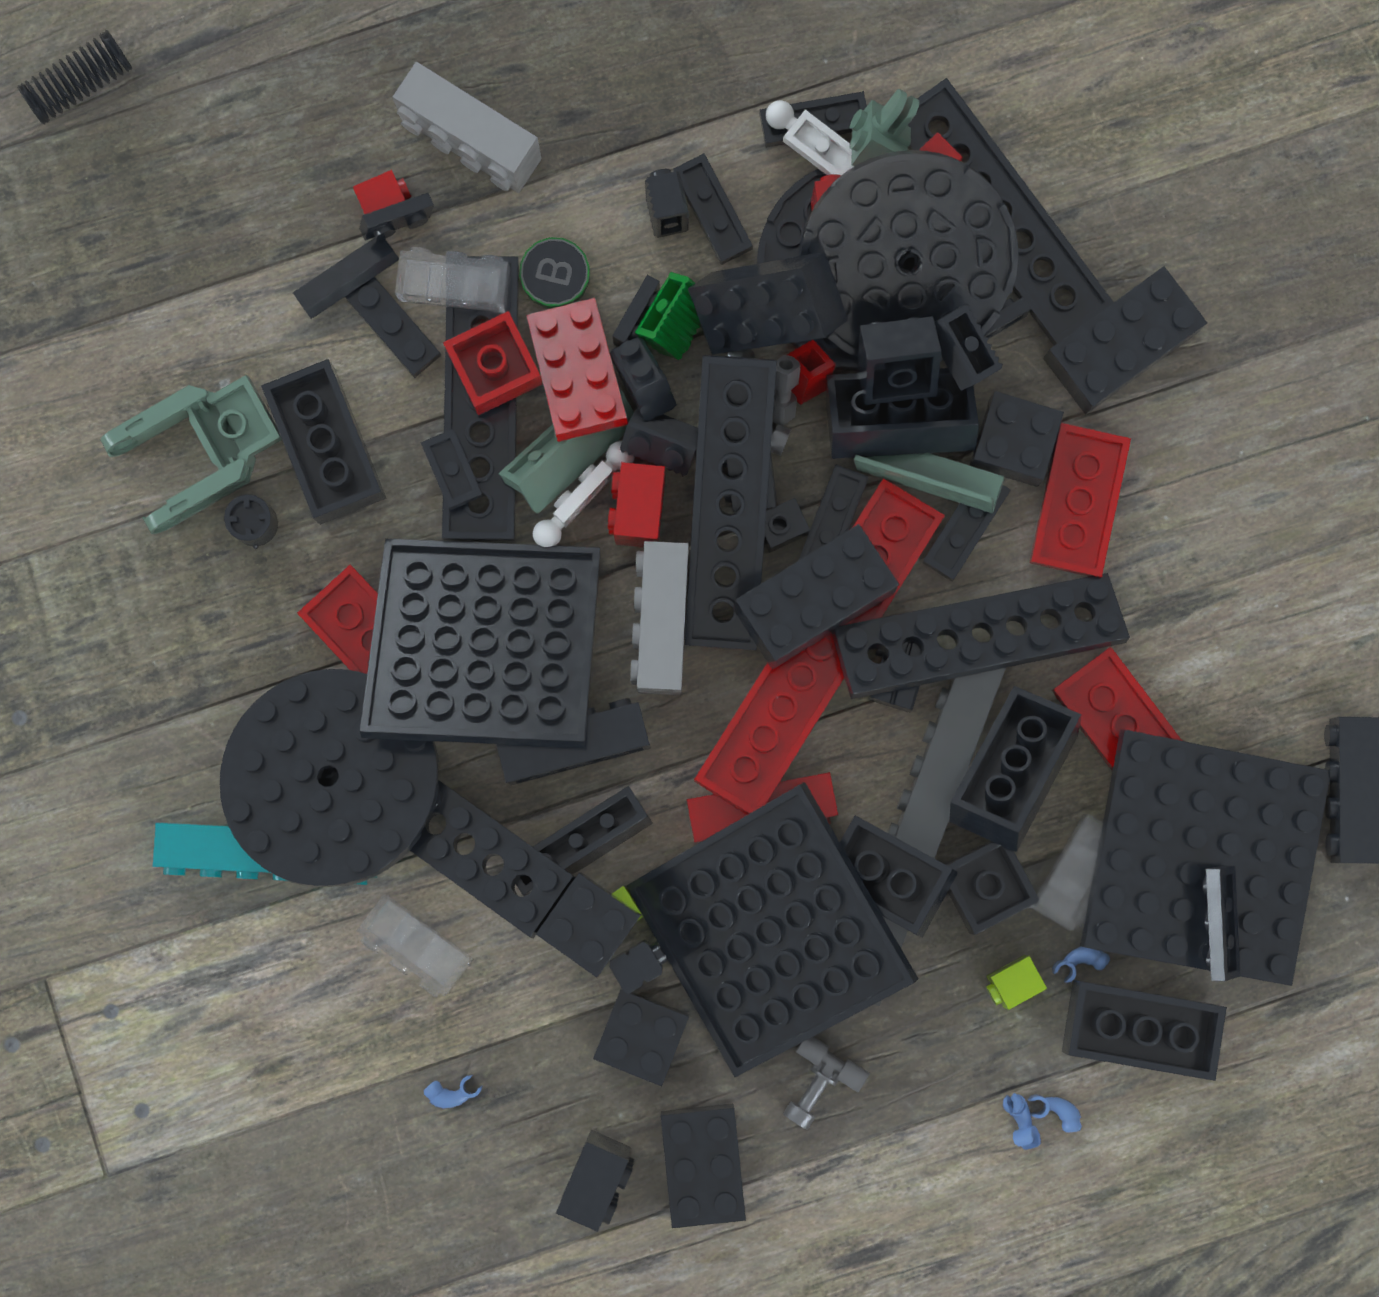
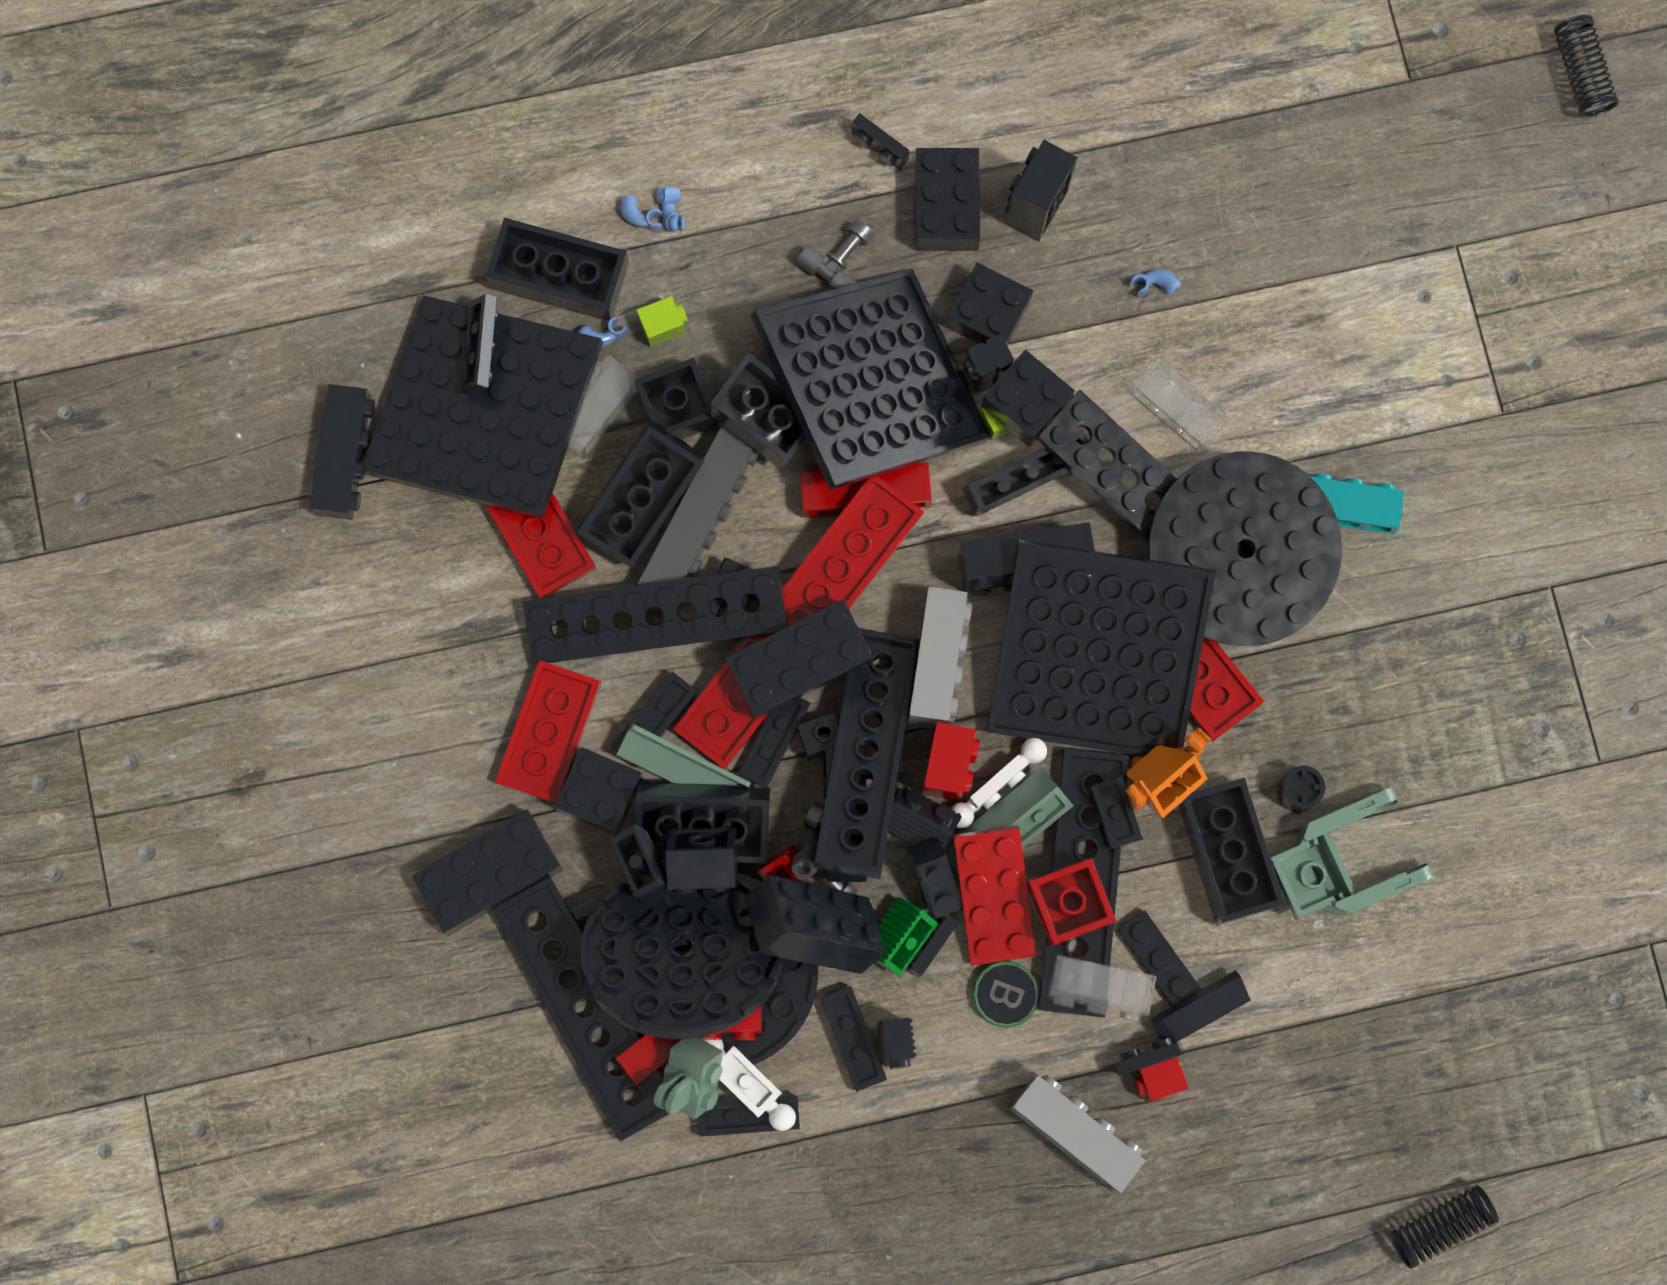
camera: 175 degrees left, 5 degrees down
(401, 510) = (1166, 775): none -> orange torso
(802, 1235) = (888, 149): none -> black plate

